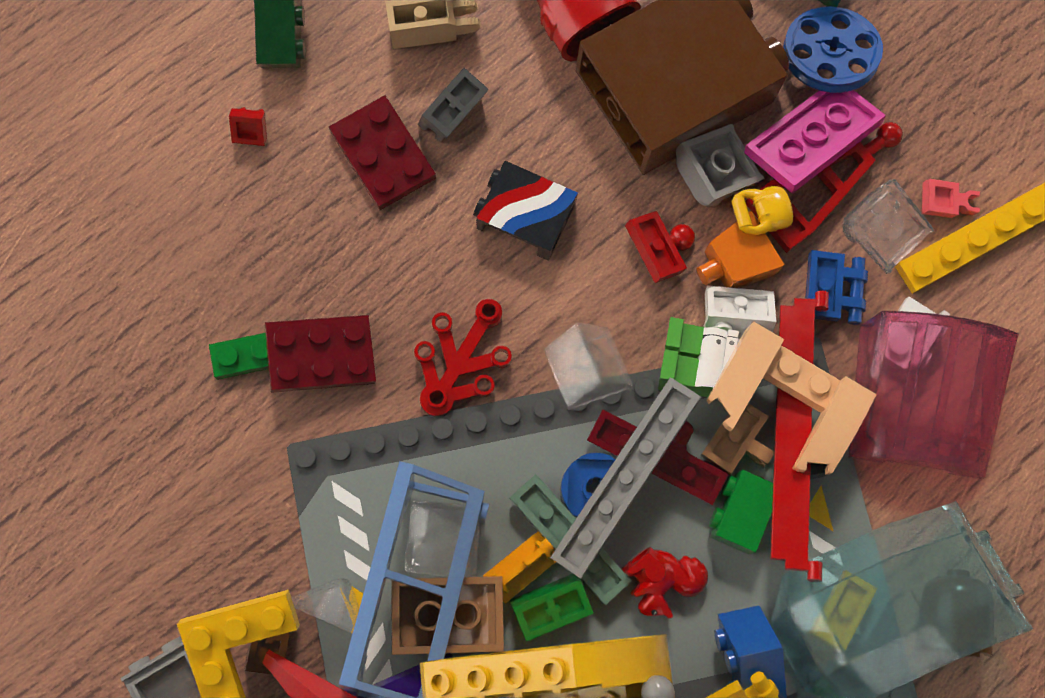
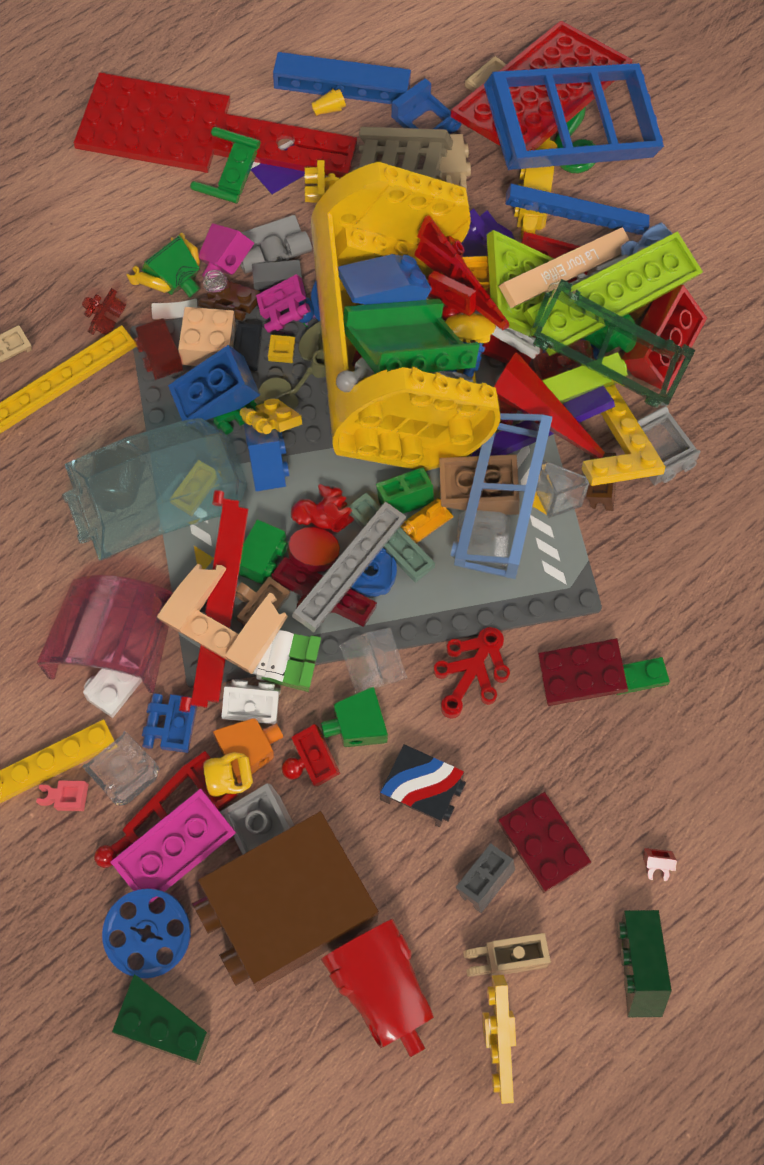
camera: 175 degrees left, 10 degrees down
(606, 287) = (357, 720): none -> green torso
(674, 517) = (313, 549): none -> red tile

